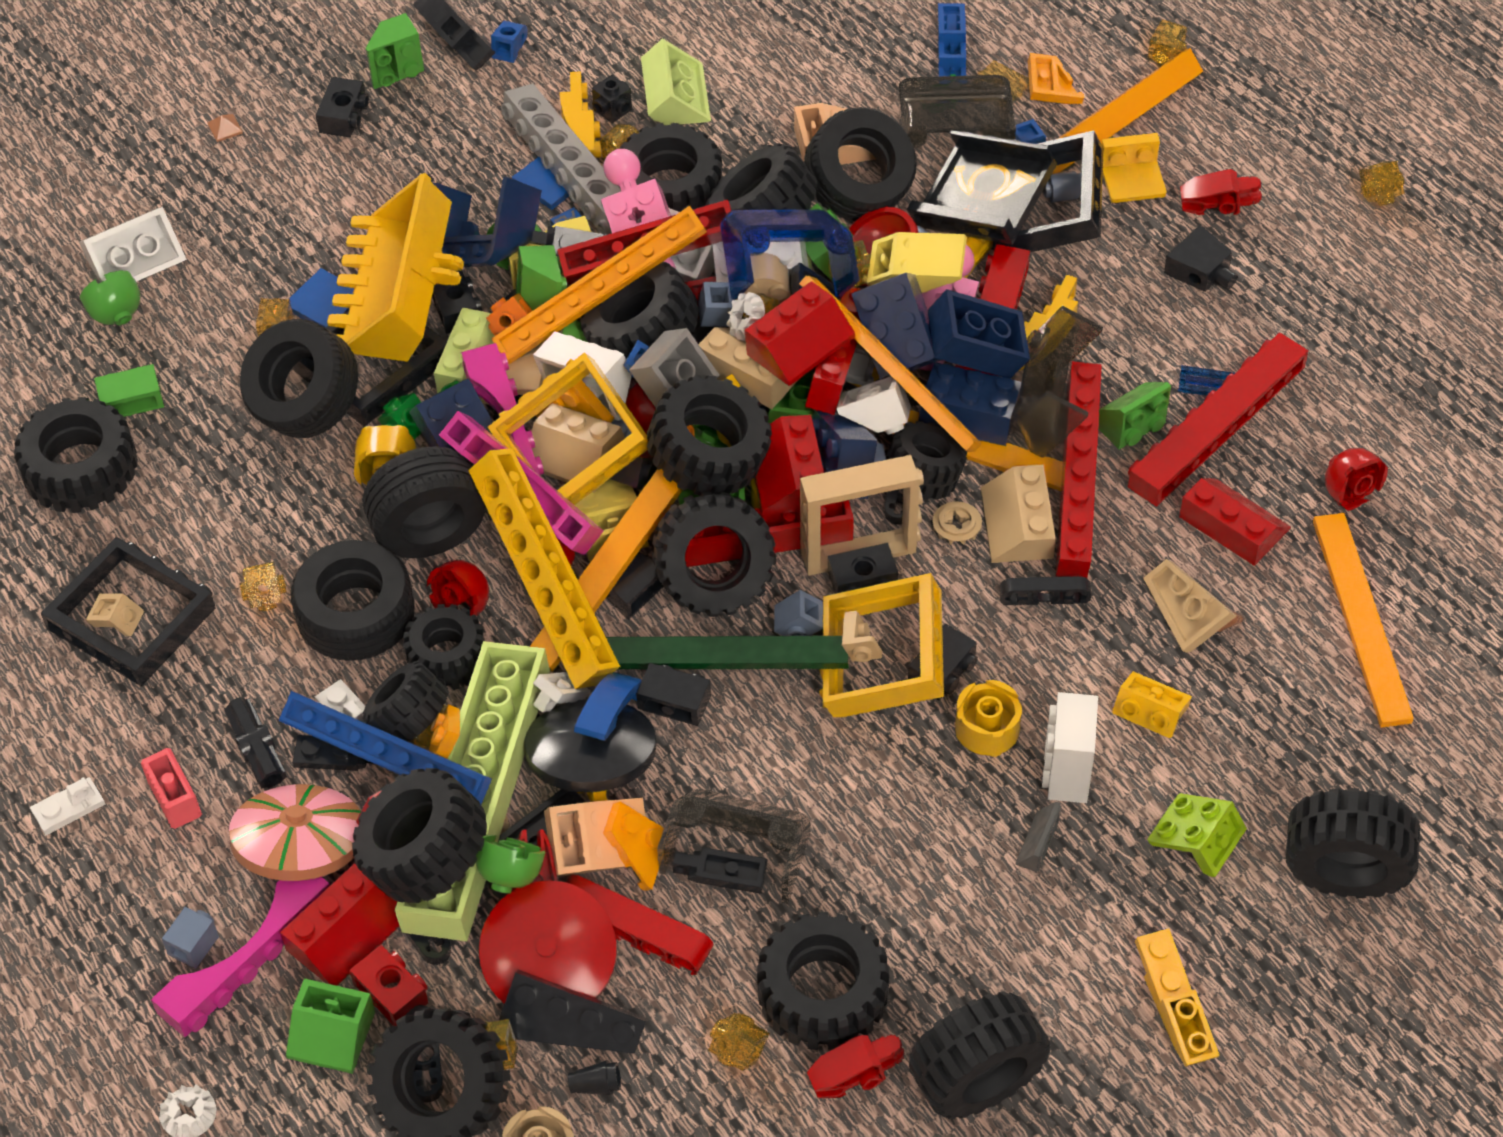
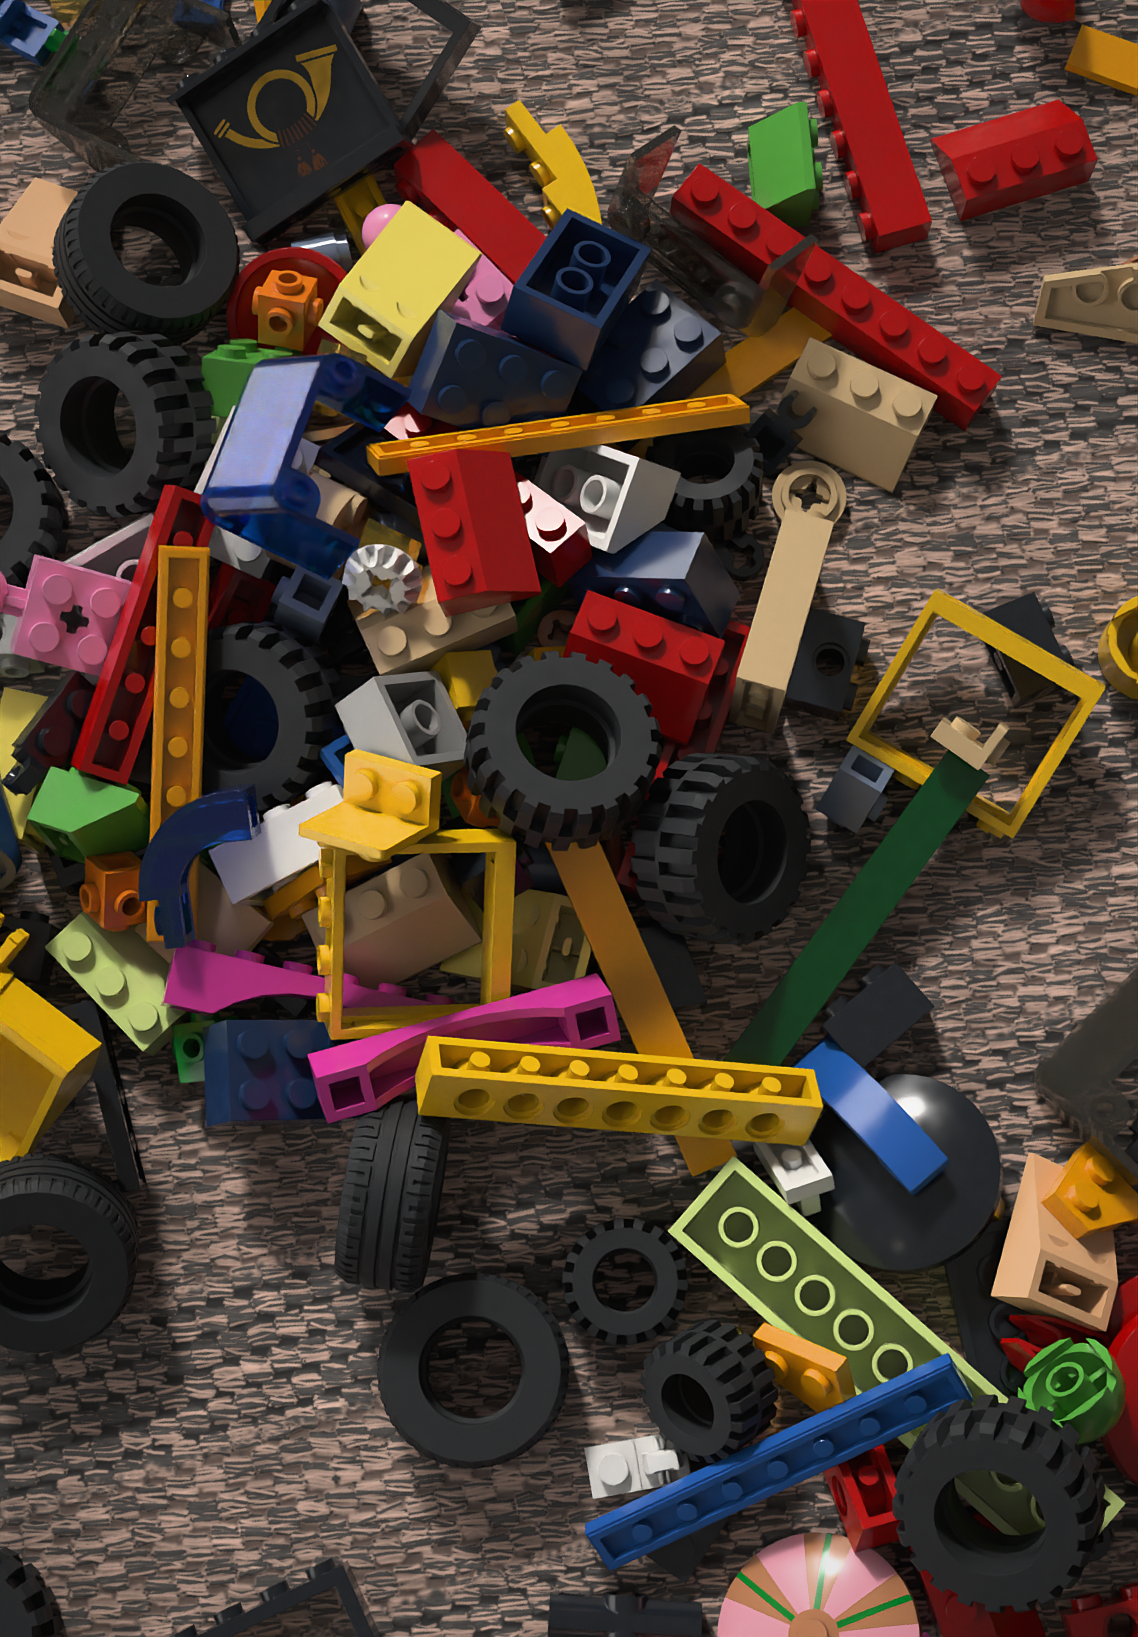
camera: 55 degrees left, 25 degrees up
(262, 575) = (376, 1486): clear yellow brick -> none
(378, 446) = (247, 1197): yellow brick -> none
(398, 413) = (181, 1134): green brick -> none
(459, 583) = (539, 1208): red cylinder -> none
(542, 310) = (165, 870): none -> clear blue arch
(622, 374) = (382, 808): none -> yellow bracket
(873, 225) = (287, 309): none -> orange brick
(976, 483) = (777, 433): none -> black plate
(1062, 590) = (987, 457): black beam -> none
(1185, 377) = (758, 38): clear blue tile -> none

